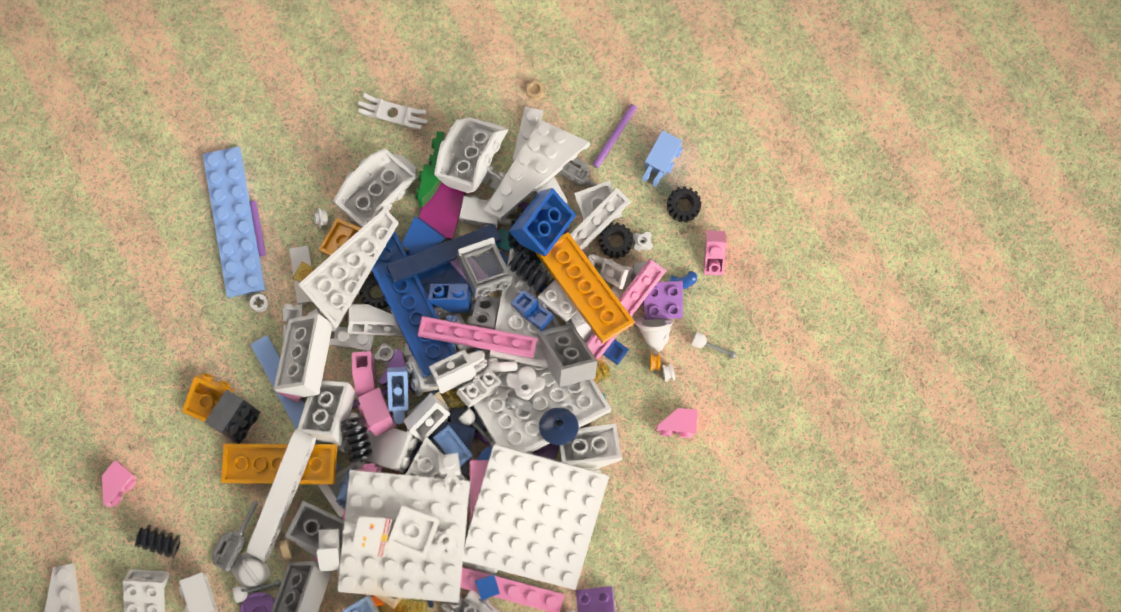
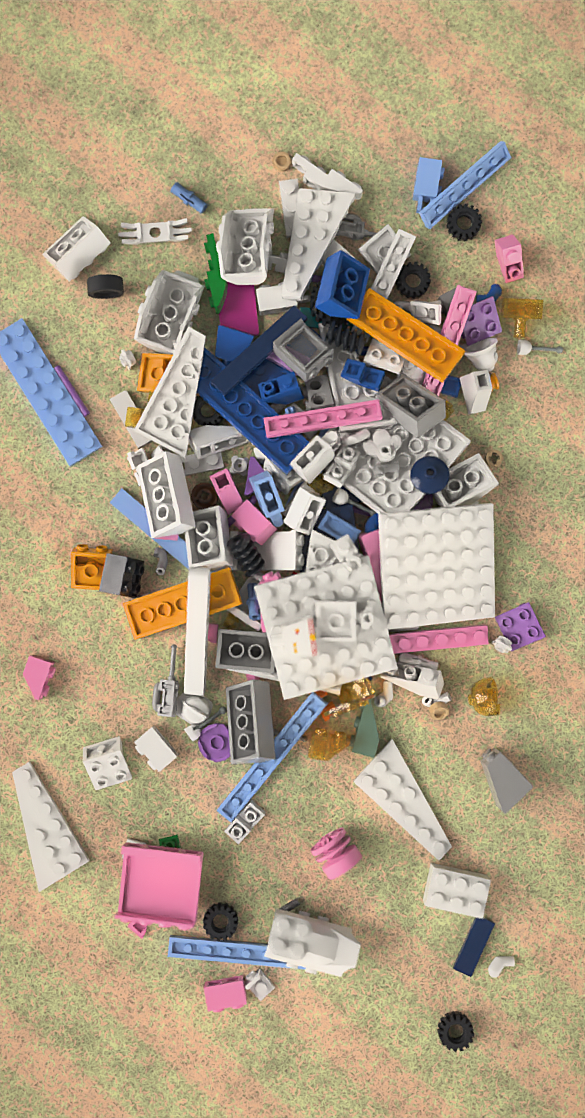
camera: 25 degrees left, 10 degrees up
(158, 542) = (99, 714): black piece -> none
(264, 306) = (103, 455): white bush -> none
(278, 417) = (163, 562): none -> light grey arm
(286, 549) = (219, 677): tan tile -> none
(296, 502) = (213, 632): none -> bright pink tile
(314, 102) = (76, 248): none -> white slope
(318, 498) = (229, 621): none -> clear yellow hinge
(326, 145) = (105, 286): none -> black tyre
(329, 550) = (261, 665): white slope -> none
(335, 365) = (197, 492): none -> reddish brown wheel
(436, 92) = (189, 198): none -> medium blue pin
(487, 587) = (418, 644): blue tile -> none
(572, 124) = (319, 180): none -> white slope
(615, 134) = (373, 180): medium lavender bar -> none
(627, 430) = (489, 454): none -> tan bush
(636, 364) = (476, 390): none -> white slope
(642, 246) = (433, 272): white plate -> none
(668, 372) = (507, 387): white bush -> none
(679, 422) = (535, 429): bright pink slope -> none
(696, 170) = (465, 185): none -> light blue tile
(707, 305) = (521, 311): none -> clear yellow brick

